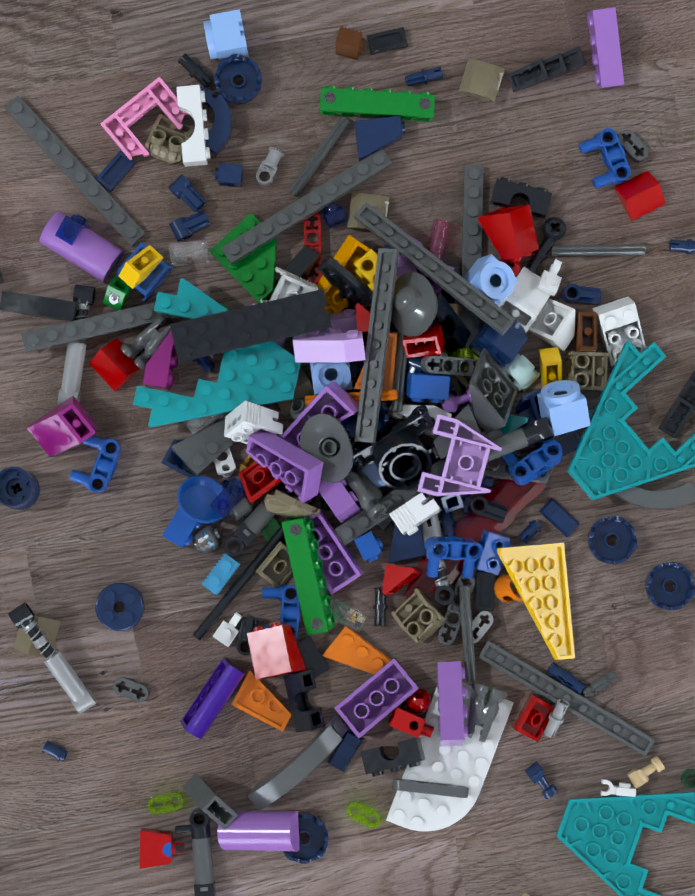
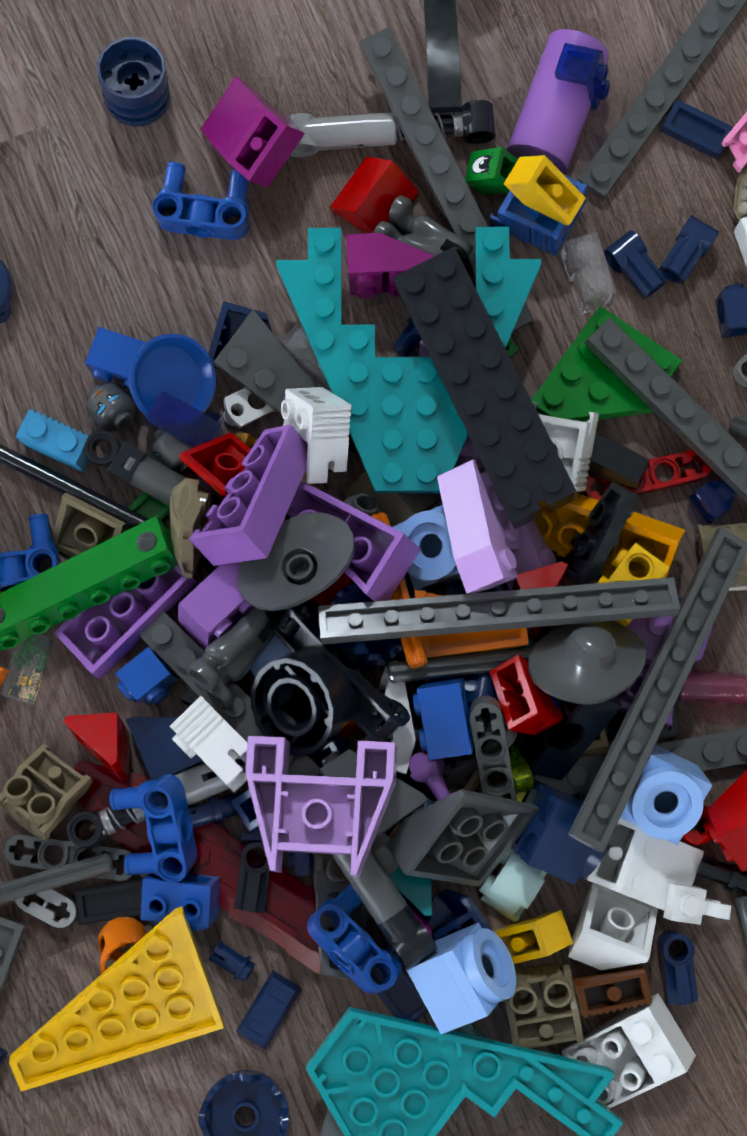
camera: 85 degrees right, 5 degrees down
(380, 607) = (47, 723): black pin -> none

